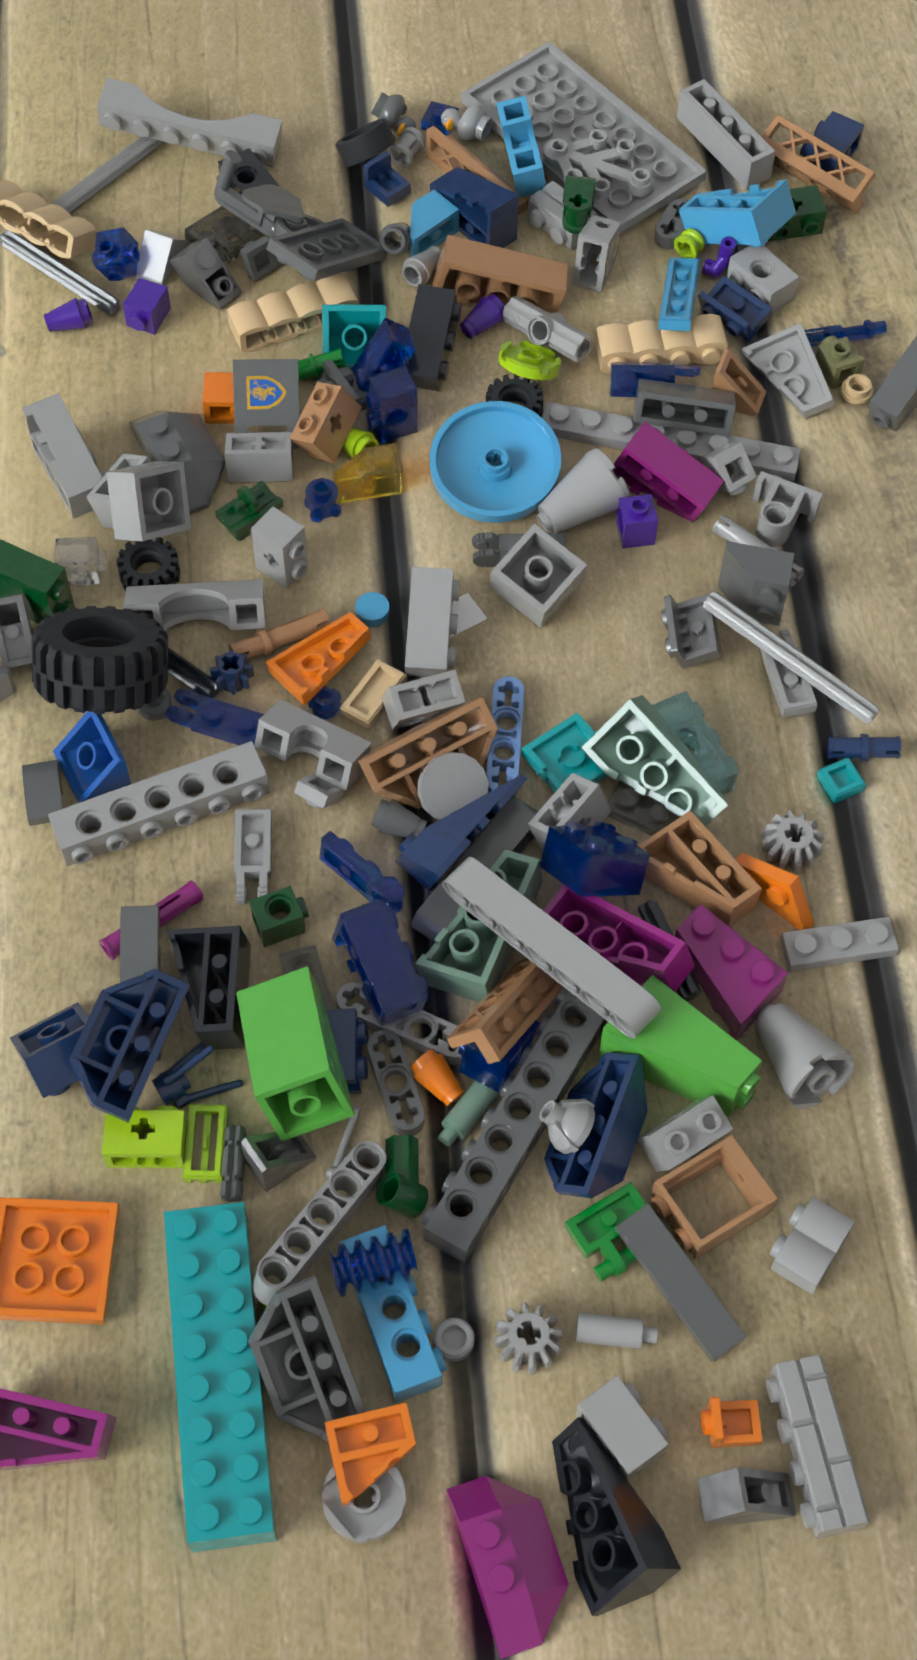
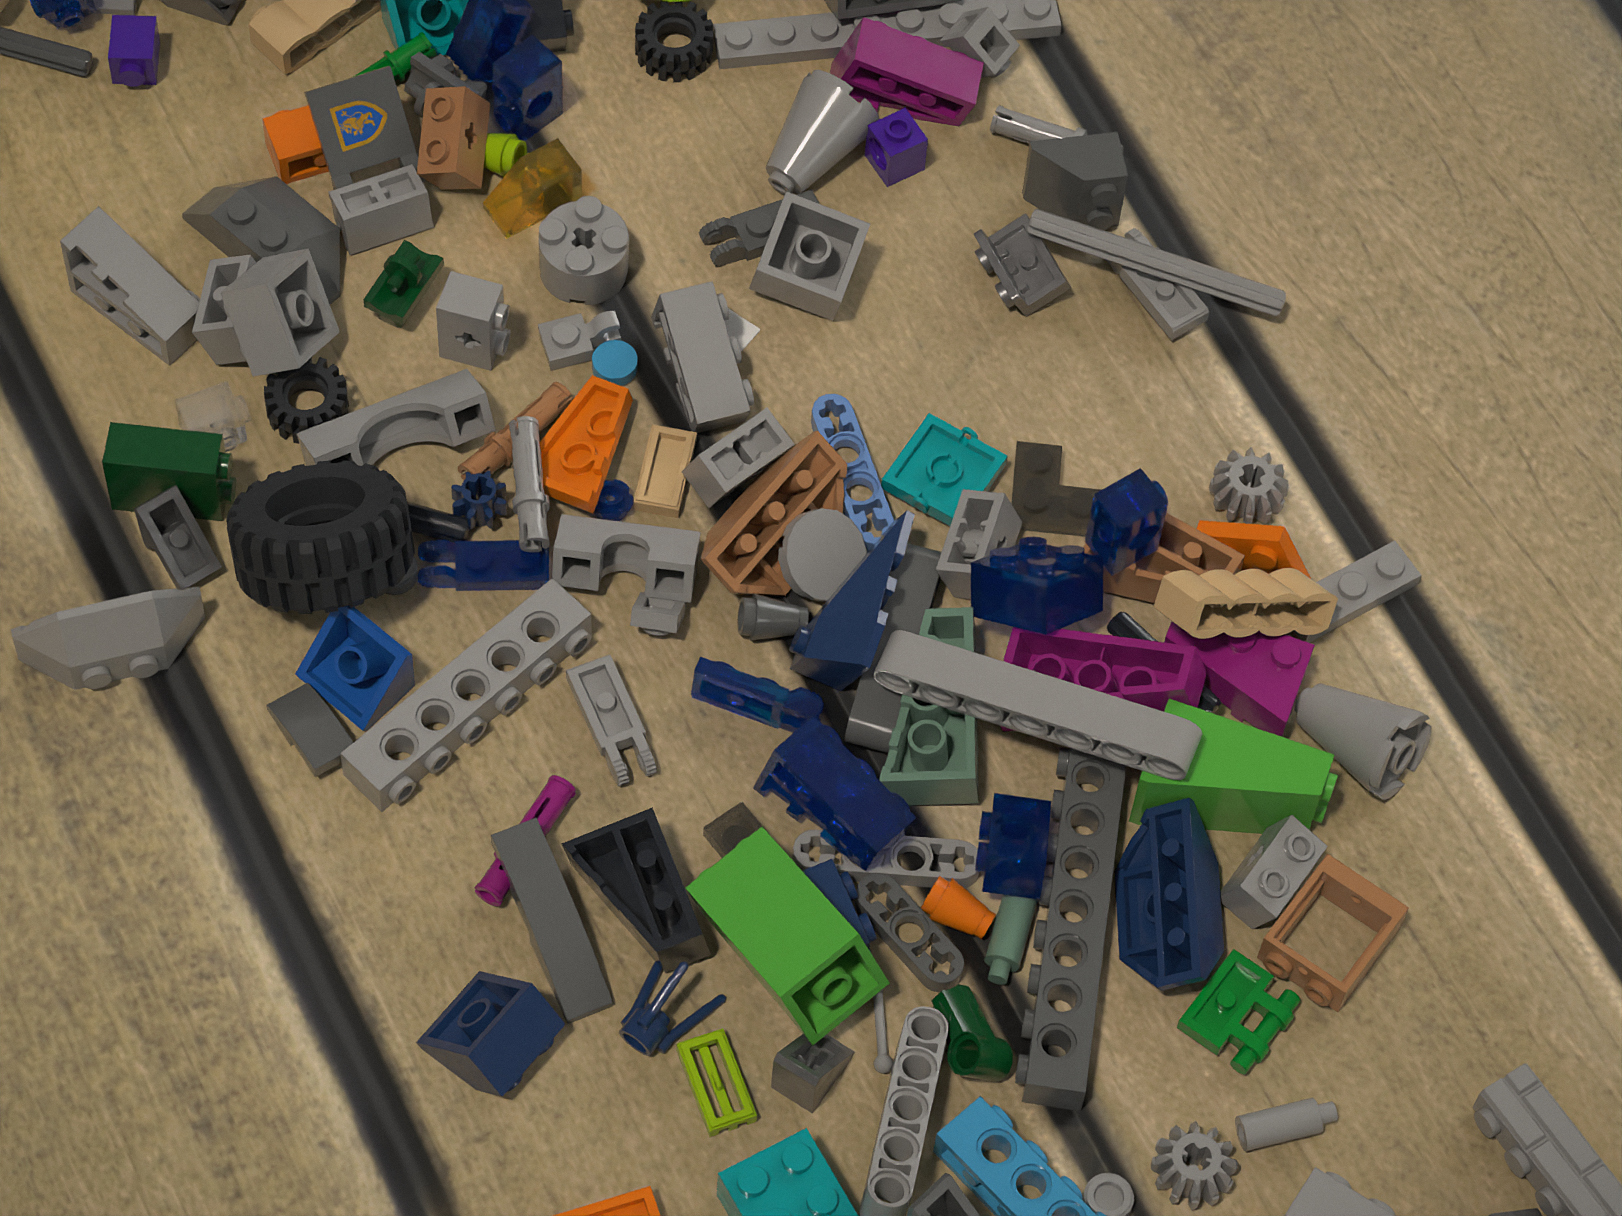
camera: 25 degrees left, 0 degrees up
(69, 316) = (35, 94): dark purple cone -> none
(125, 1040) = (582, 988): dark blue wedge -> none
(162, 1147) = (625, 1116): lime brick -> none
(233, 1164) = (762, 1093): dark grey axle -> none
(263, 683) = (530, 497): none -> light grey pin
(276, 930) = (678, 801): dark green brick -> none
(321, 499) = (487, 241): clear blue brick -> none
(349, 583) = (572, 341): none -> light grey plate
(373, 1262) = (992, 1137): clear blue piece -> none
(382, 525) = (583, 251): none -> light grey brick
(495, 461) = (688, 124): dark azure dish -> none
(507, 1011) = (1013, 797): medium nougat fence -> none
(568, 1123) = (1140, 906): light grey piece -> none
(652, 758) = (1048, 442): sand green wedge -> none
(675, 832) = (1126, 520): none -> clear blue brick
(680, 1282) = (1336, 1041): dark grey tile -> none
(689, 724) = (1060, 386): clear light blue arch -> none
(731, 1423) = (1457, 1175): orange bracket -> none
(743, 923) = (1245, 602): none -> tan brick
(782, 507) = (1063, 74): light grey pin -> none
(811, 1245) = (1462, 947): light grey brick -> none
(841, 780) = (1272, 394): teal tile -> none
(864, 747) = (1283, 346): dark blue pin -> none

